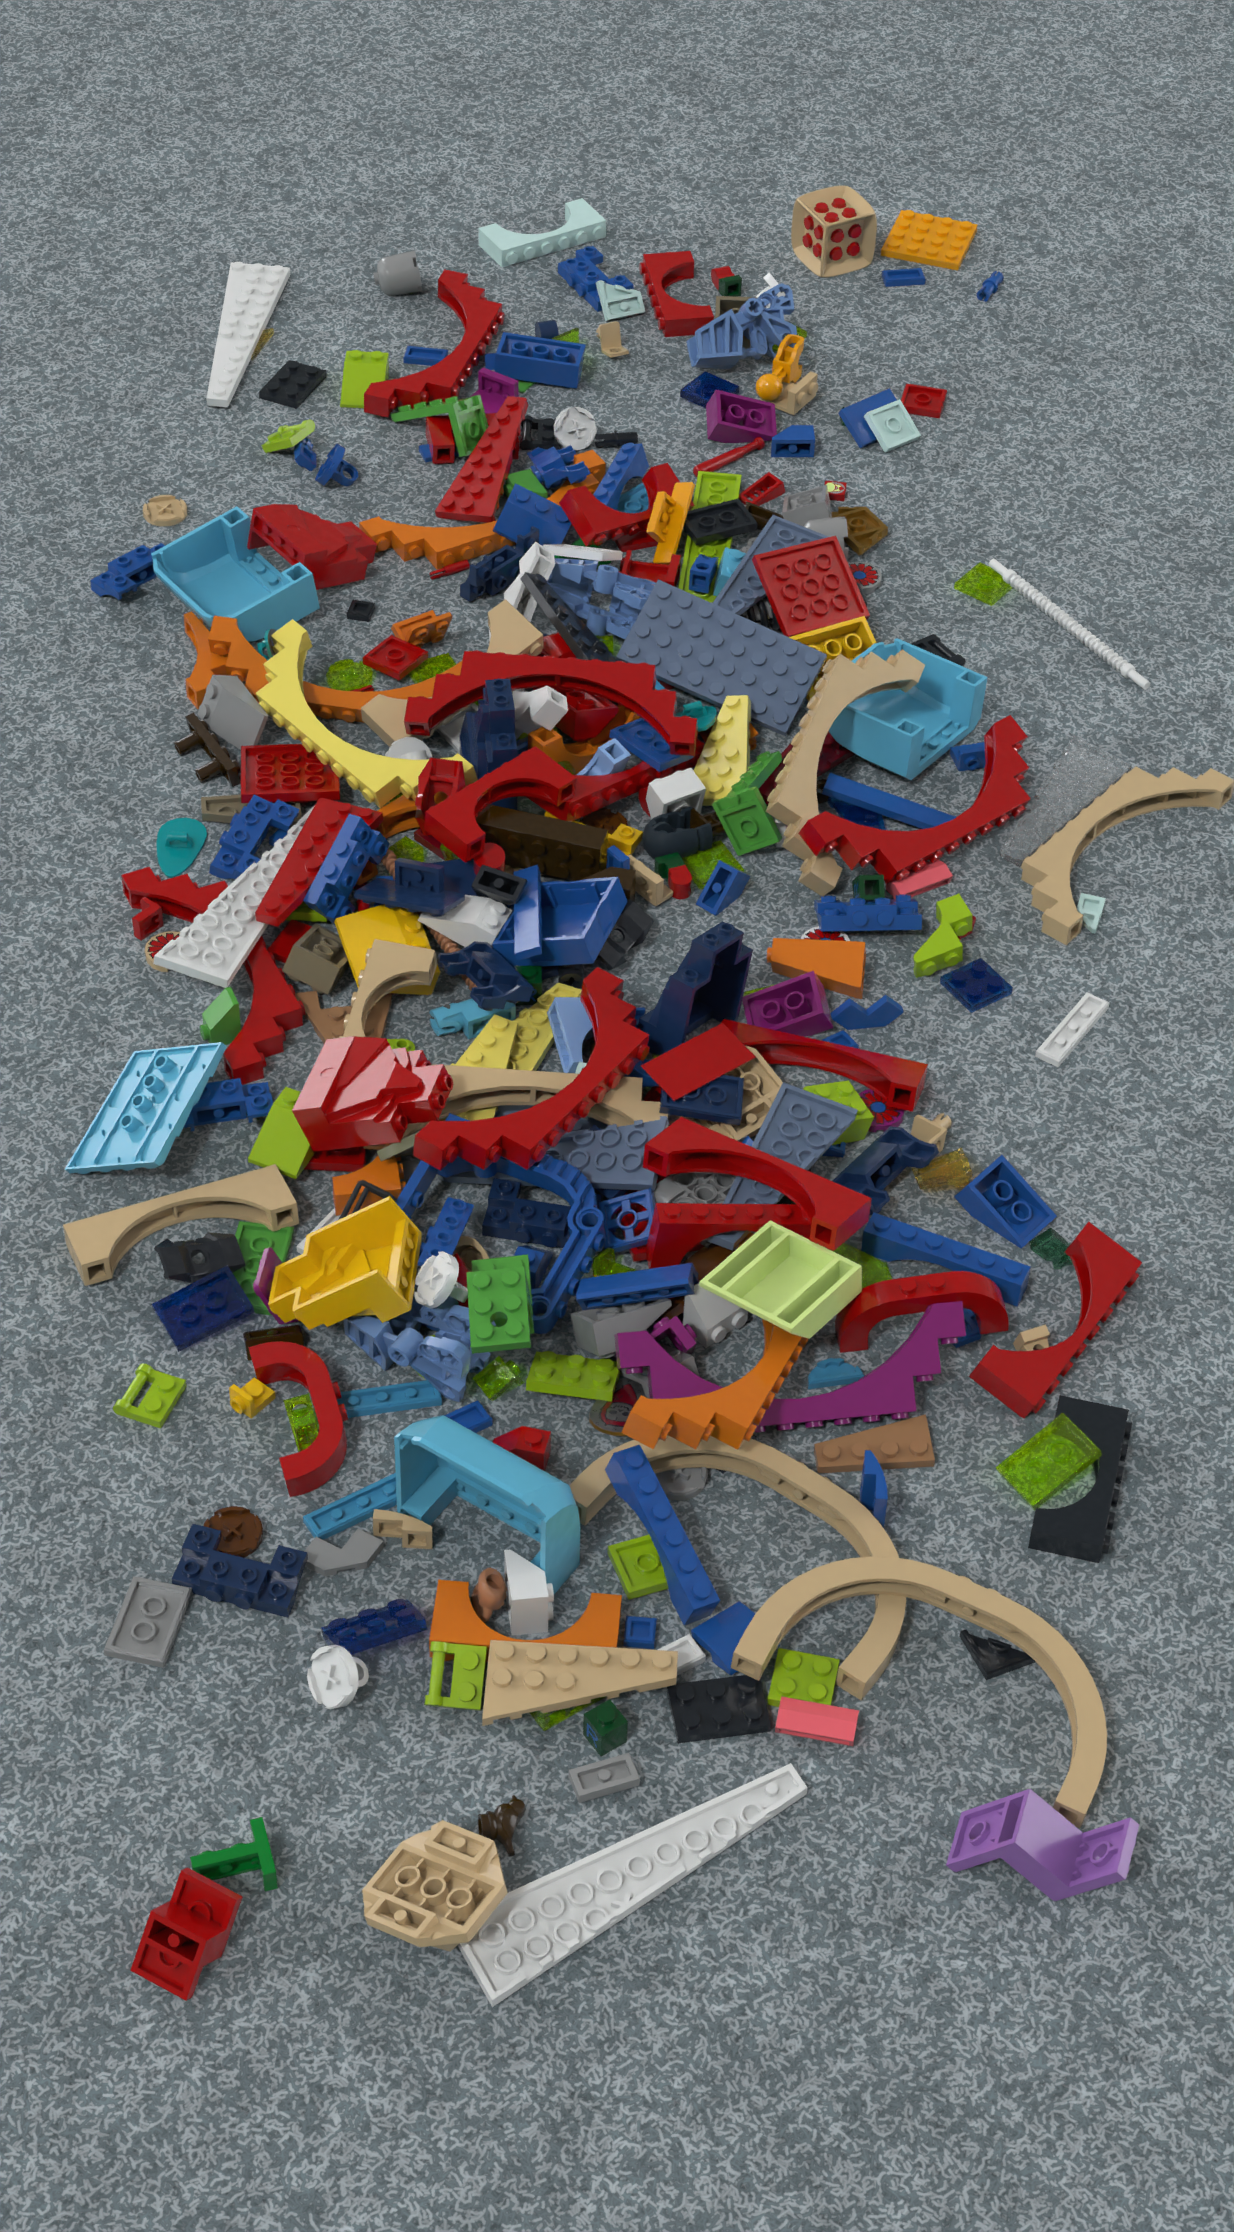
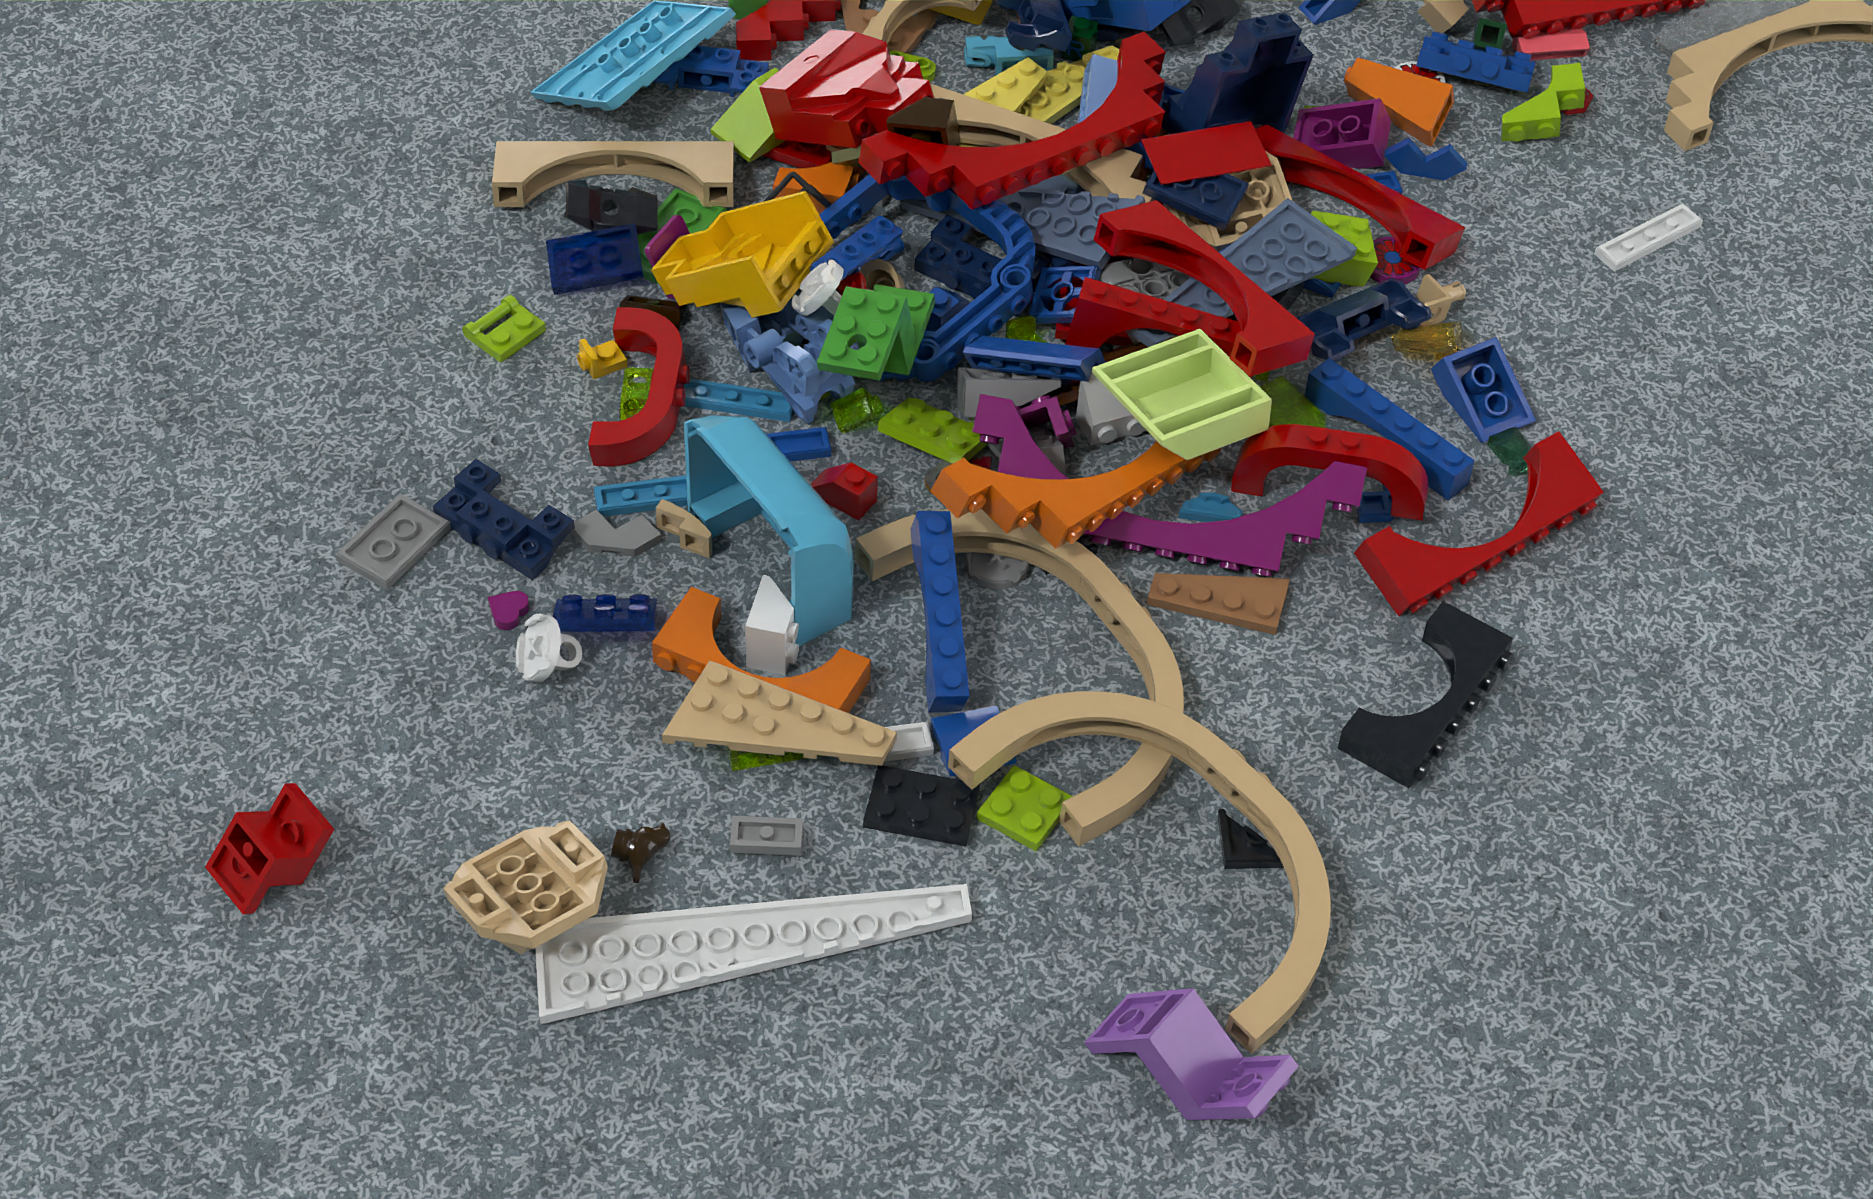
camera: 20 degrees right, 5 degrees up
(239, 1529) = (522, 482): reddish brown tile -> none
(240, 1858) = (361, 795): green bracket -> none
(281, 1650) = (508, 608): none -> magenta tile
(462, 1102) = (928, 121): none -> dark brown slope
(466, 1677) = (672, 690): lime plate -> none
(488, 1593) = (735, 616): nougat piece -> none
(605, 1727) = (790, 786): dark green brick -> none
(638, 1566) = (904, 639): lime plate -> none
(640, 1632) = (878, 704): blue tile -> none
(817, 1721) = (1017, 851): coral piece -> none
(873, 1487) = (1187, 635): blue slope -> none
(976, 985) = (1562, 165): clear blue plate -> none
(1032, 1339) = (1444, 535): tan tile -> none
(1048, 1461) = (1399, 665): clear neon green tile -> none
(1092, 909) = (1728, 123): light aqua slope -> none

